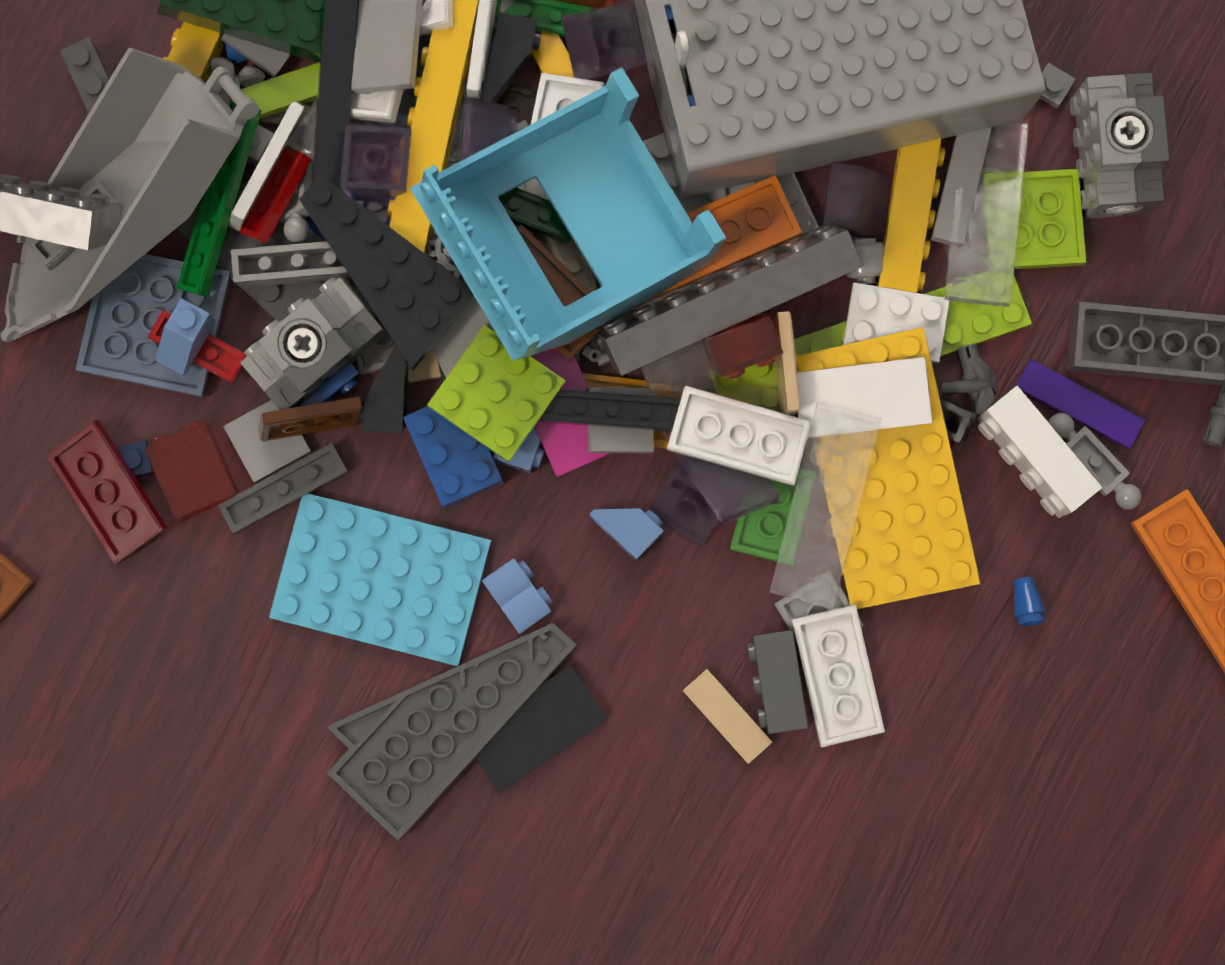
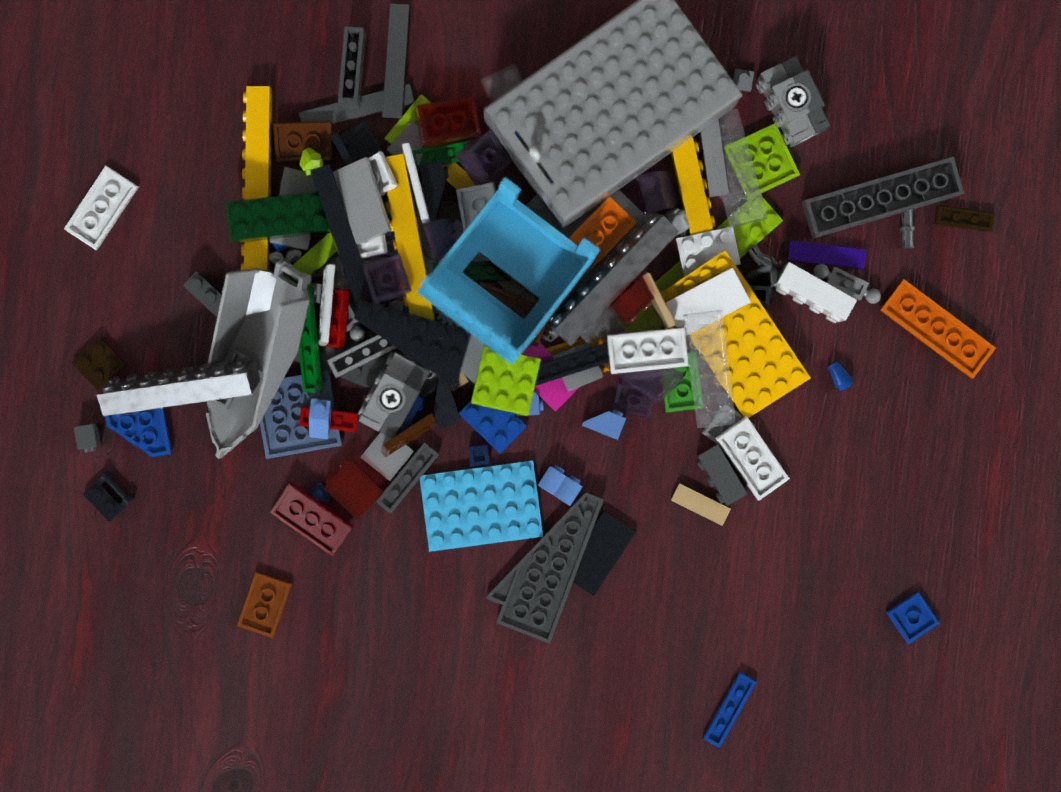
camera: 25 degrees left, 5 degrees up
(409, 497) = (478, 455): none -> dark blue plate

